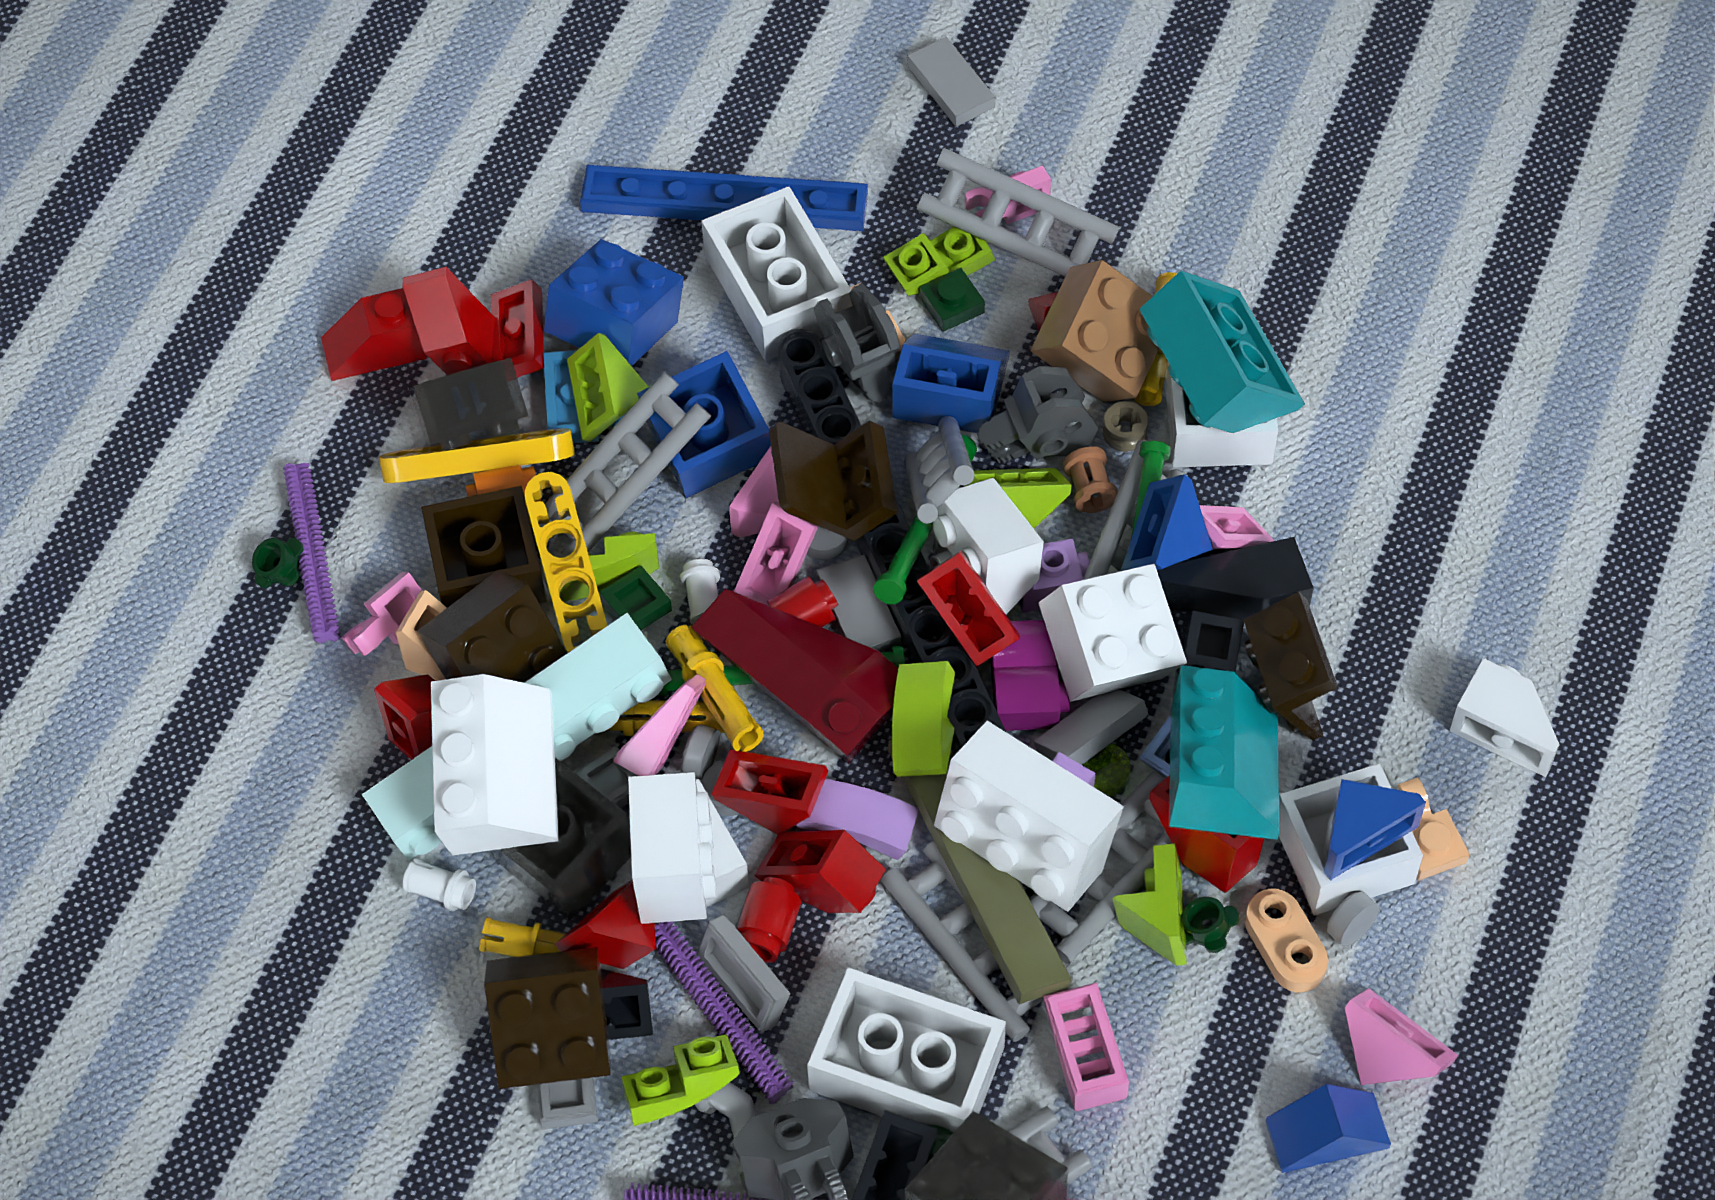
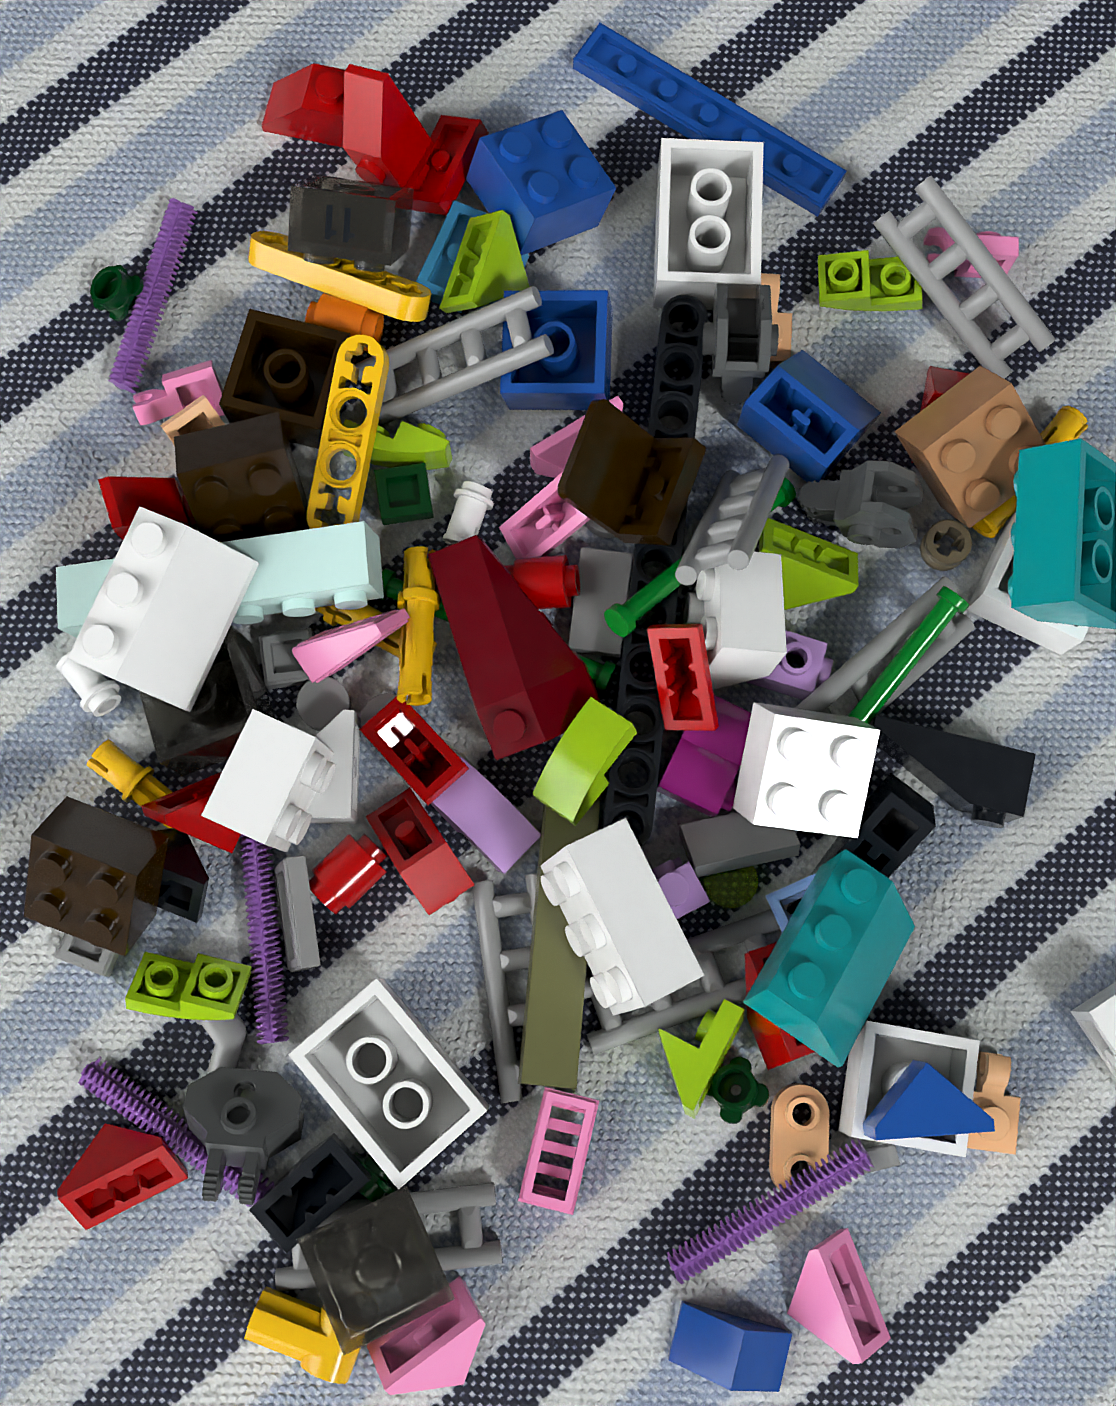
camera: 25 degrees right, 20 degrees up
(700, 750) = (377, 675): light grey tile -> none
(951, 81) = (985, 99): light grey tile -> none
(952, 299) = (858, 330): dark green plate -> none
(1074, 468) = (879, 568): nougat bush -> none
(1168, 526) = (916, 691): blue slope -> none
(1232, 528) = (976, 708): bright pink slope -> none
(1290, 995) = (769, 1212): none -> medium lavender axle
(1291, 661) = (955, 890): dark brown bracket -> none

